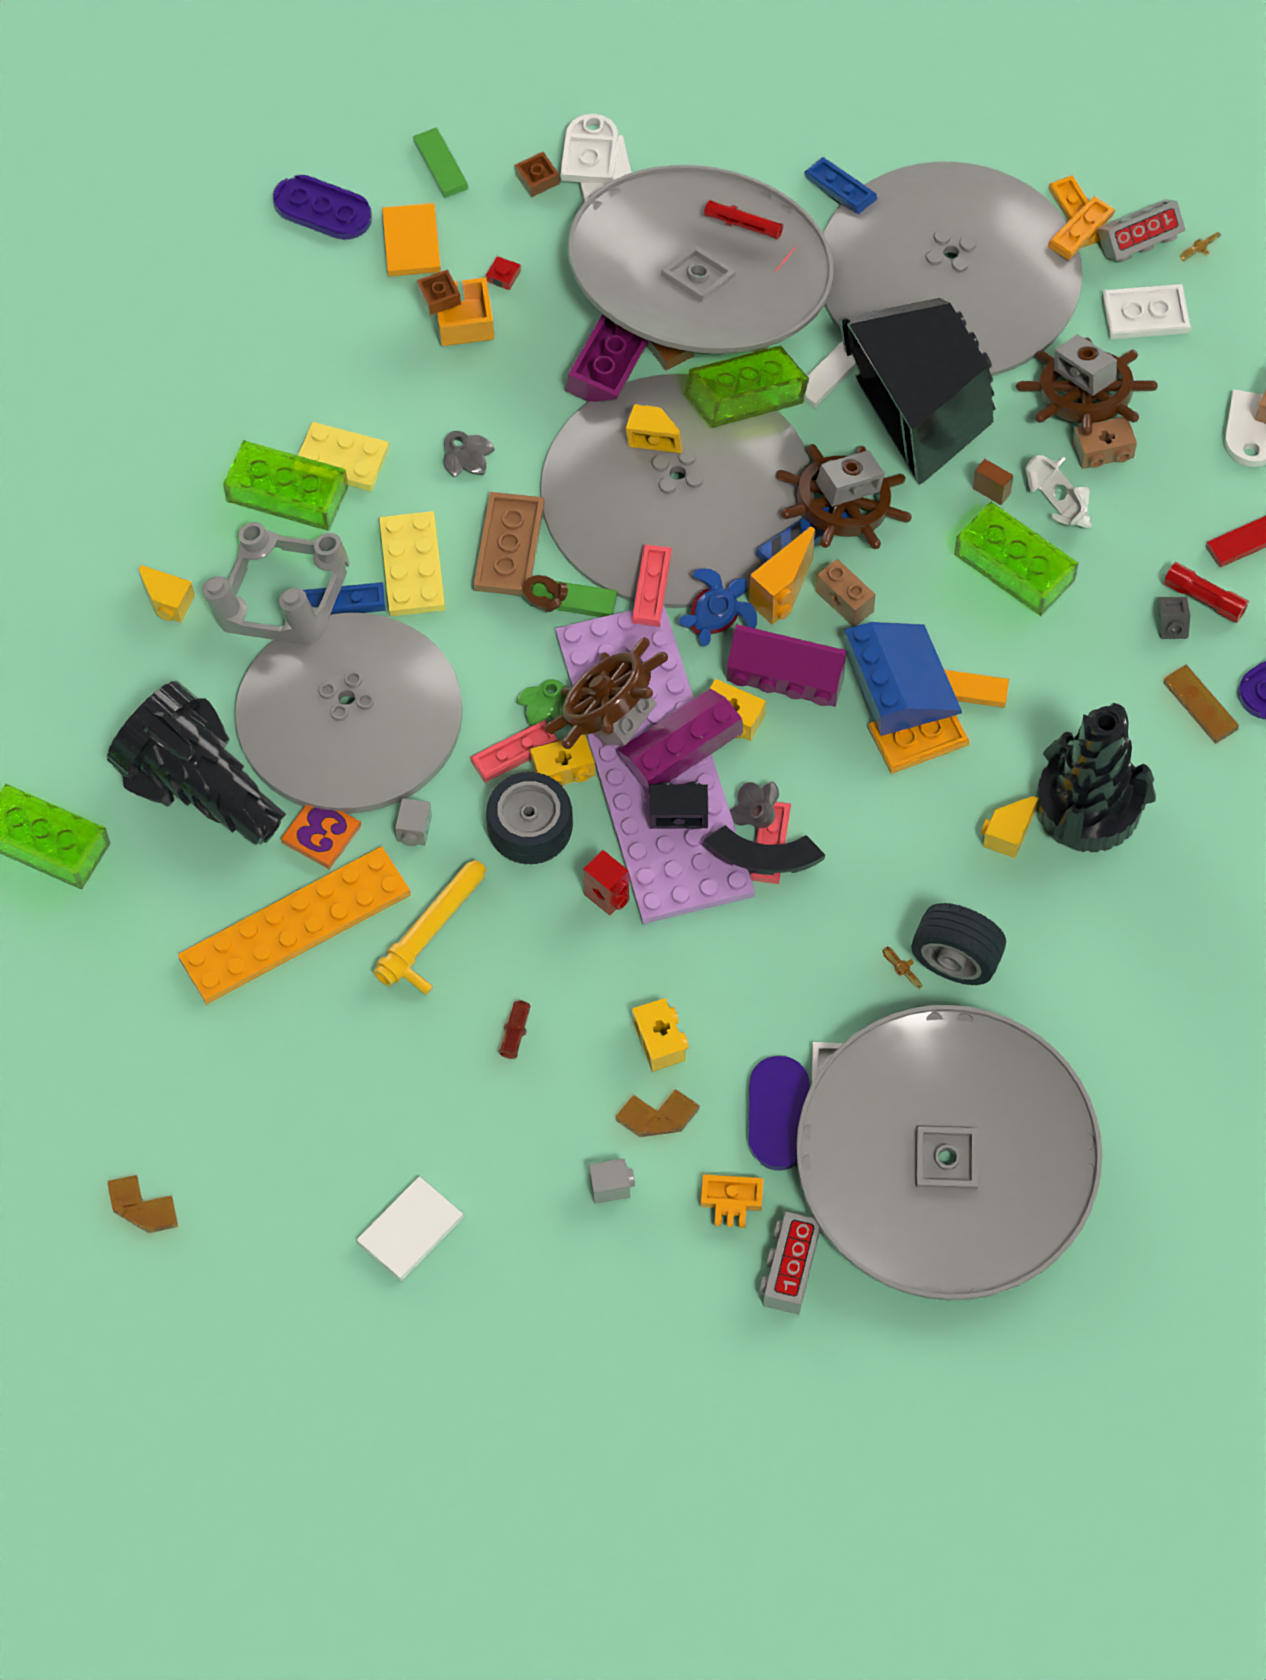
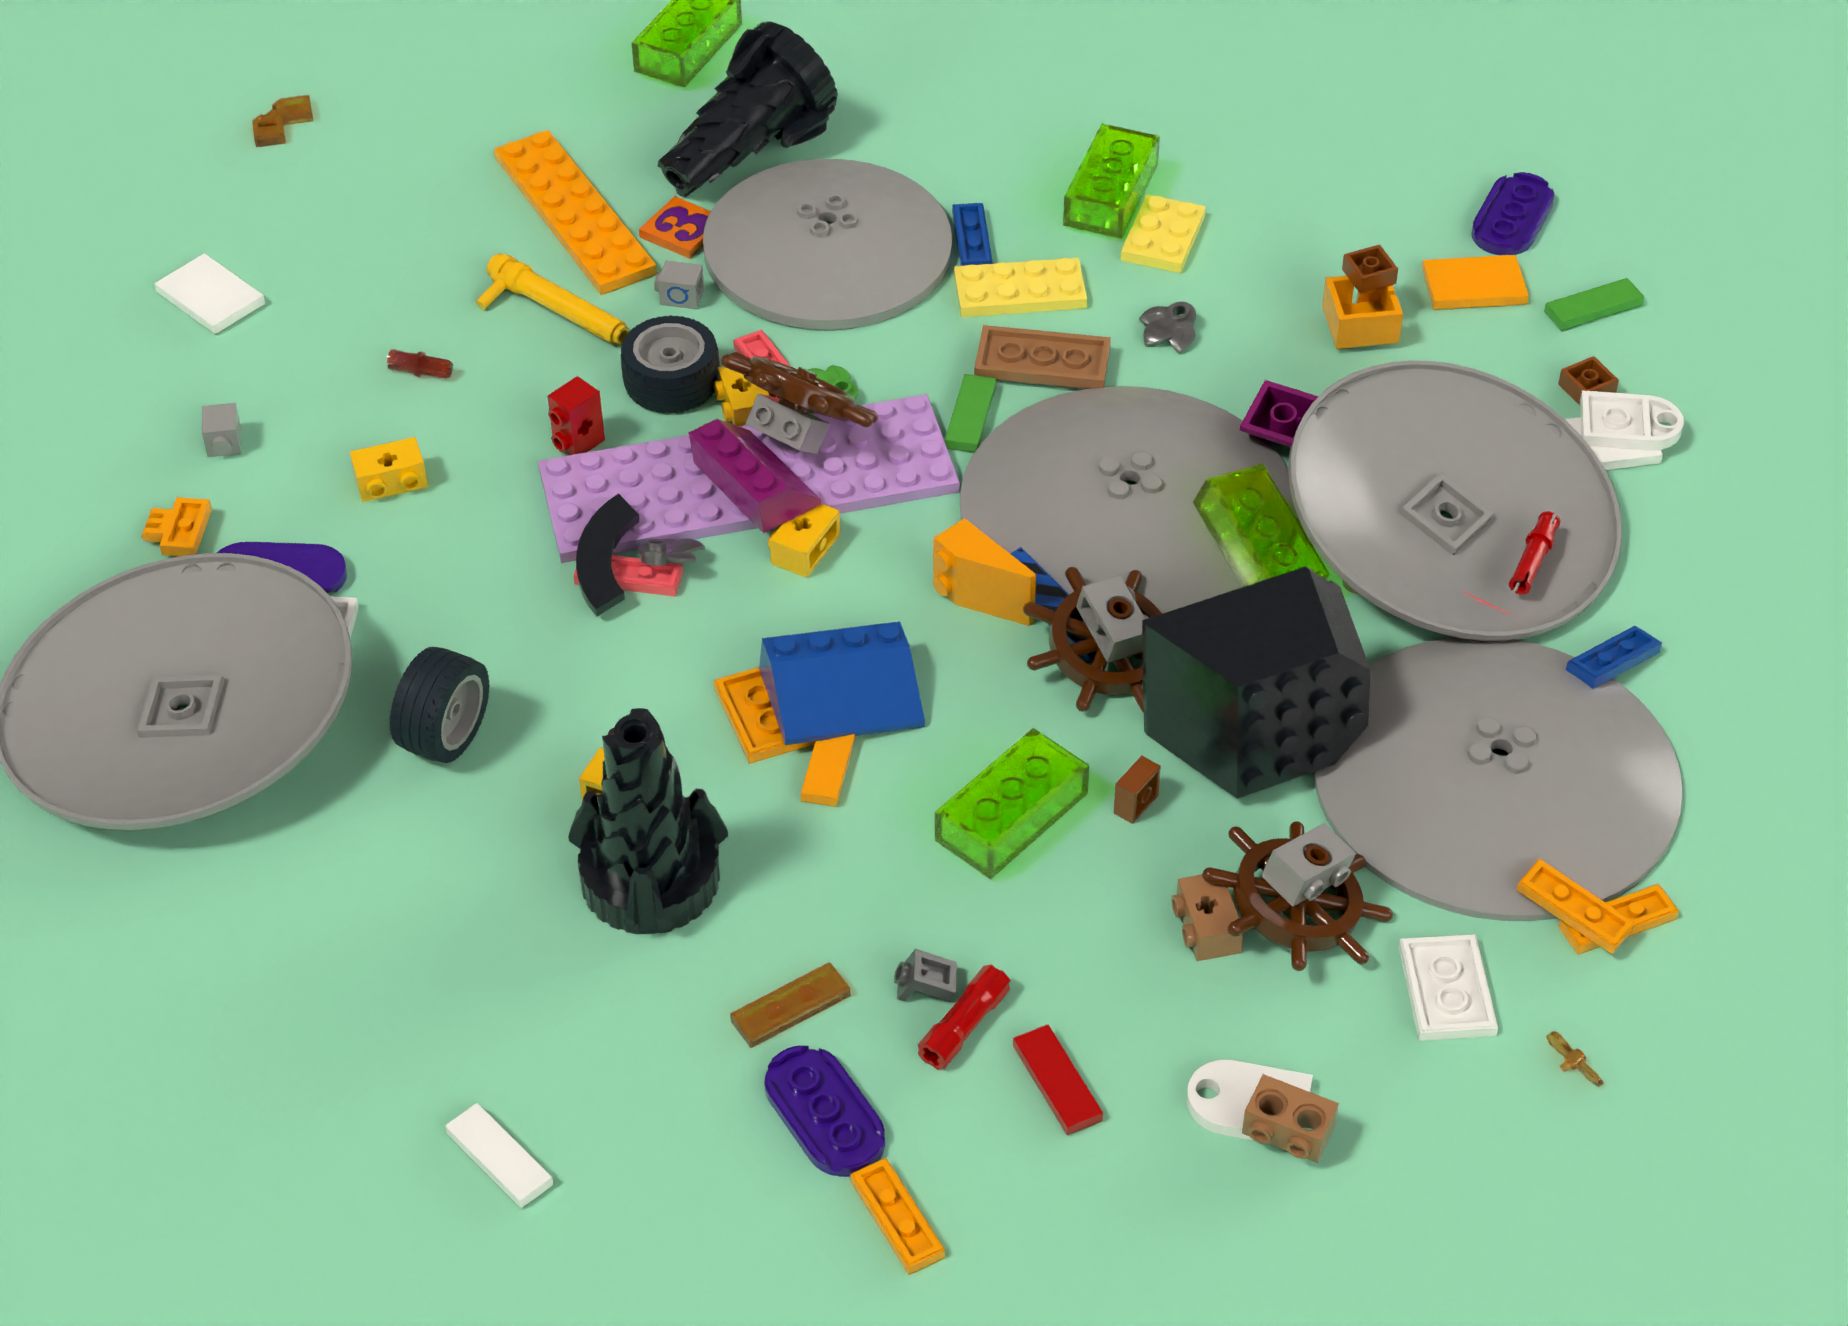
camera: 90 degrees right, 15 degrees down
(167, 593) = (976, 107): yellow slope -> none
(303, 622) = (950, 141): light grey piece -> none
(503, 273) = (1436, 351): red plate -> none
(559, 591) = (974, 386): reddish brown piece -> none
(647, 1121) = (291, 481): clear orange tile -> none
(651, 585) = (973, 460): coral tile -> none
(652, 430) = (1184, 444): yellow slope -> none
(678, 806) = (666, 474): black brick -> none
(717, 607) = (939, 514): blue animal -> none
(786, 665) = (856, 572): magenta slope -> none
(790, 1263) = (76, 566): light grey brick -> none
(845, 593) = (965, 639): medium nougat brick -> none
(1045, 475) = (1150, 846): white piece -> none
(1141, 230) = (1580, 974): light grey brick -> none

